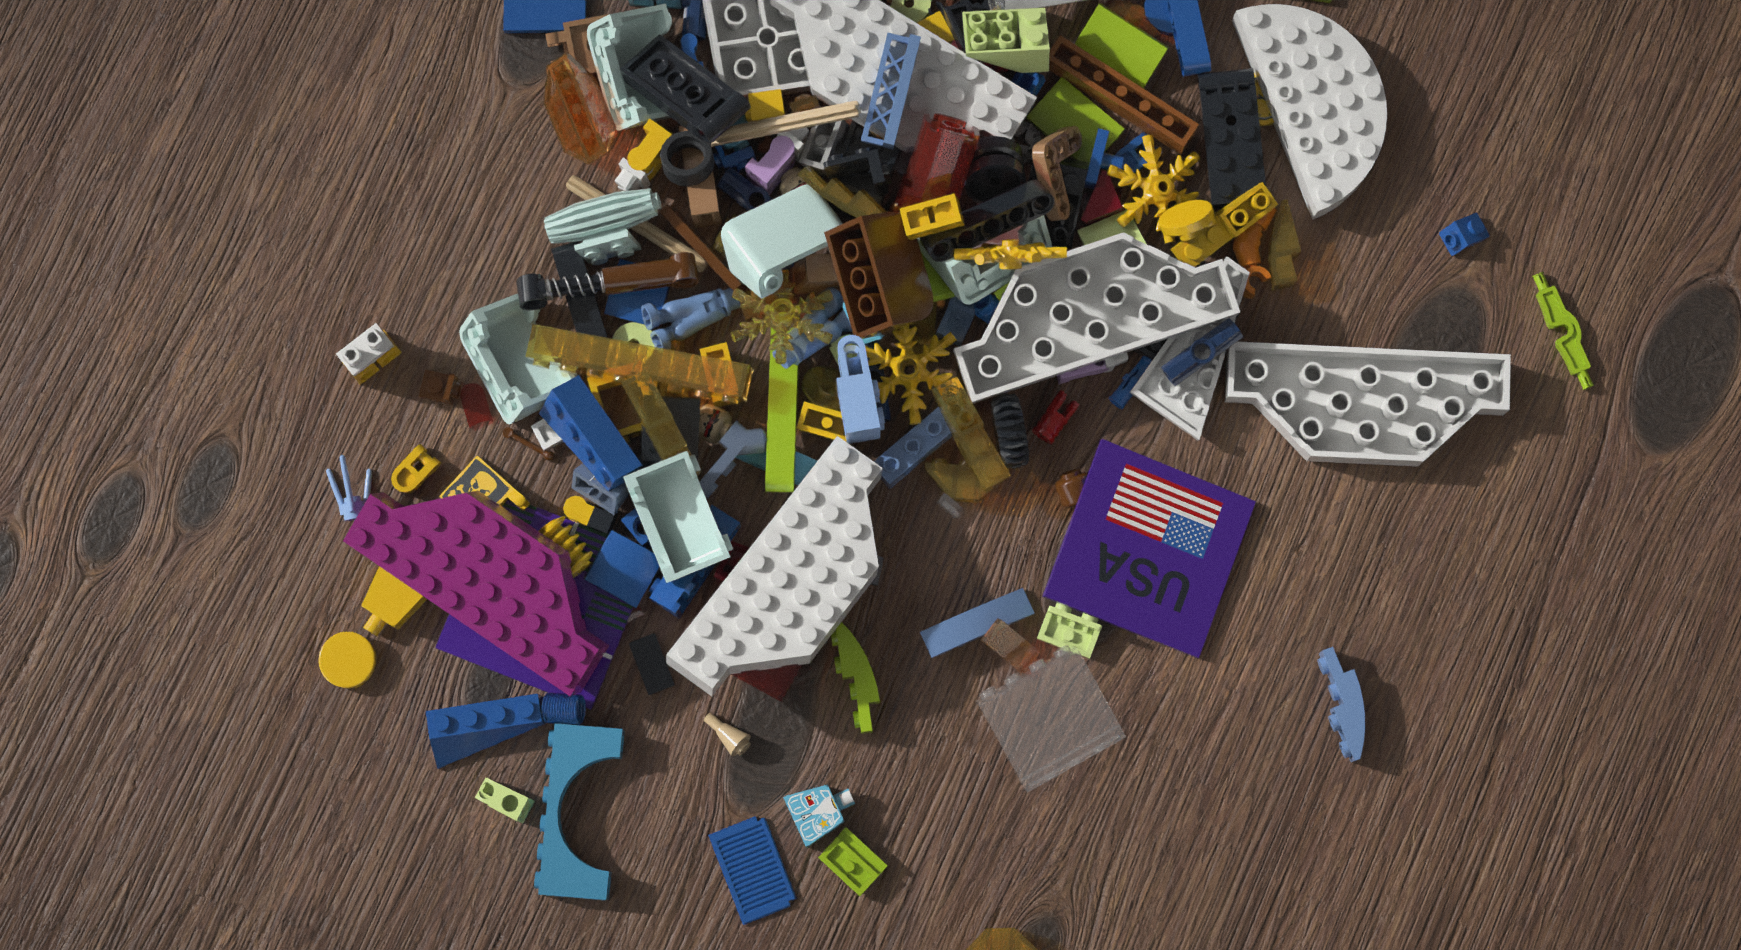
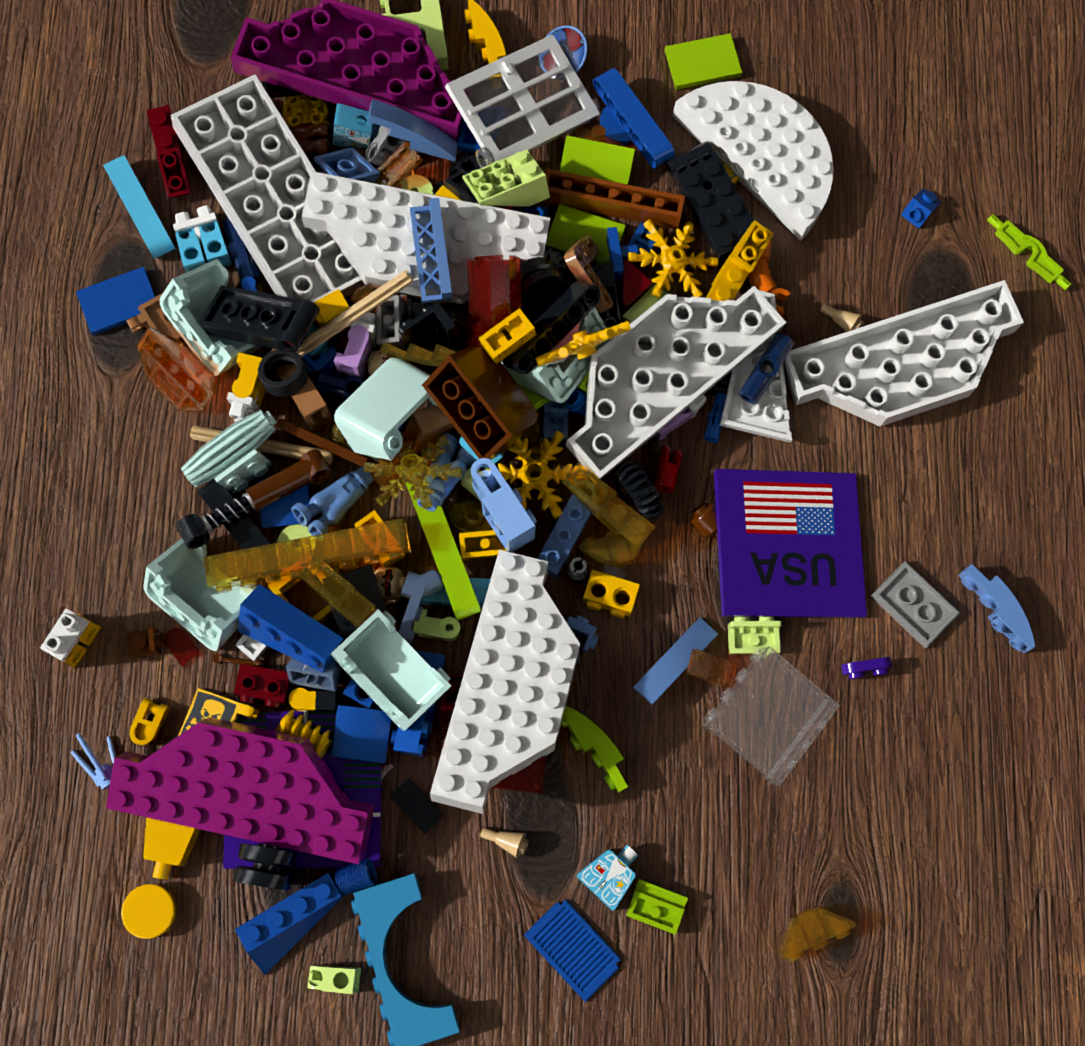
camera: 30 degrees left, 5 degrees down
(479, 660) = (265, 866): none -> black wheel
(544, 479) = (262, 685): none -> dark red brick
(743, 491) = (435, 628): none -> yellowish green leg
(893, 548) = (580, 626): none -> medium blue bracket
(912, 495) = (575, 565): none -> dark grey pin
(943, 521) = (612, 587): none -> yellow brick
(1186, 713) = (856, 669): none -> dark purple plate
(1187, 219) = (708, 271): yellow tile -> none
(1257, 665) = (915, 604): none -> light grey tile
(1283, 248) = (789, 268): clear yellow slope -> none
(1322, 331) = (846, 320): none -> tan cone

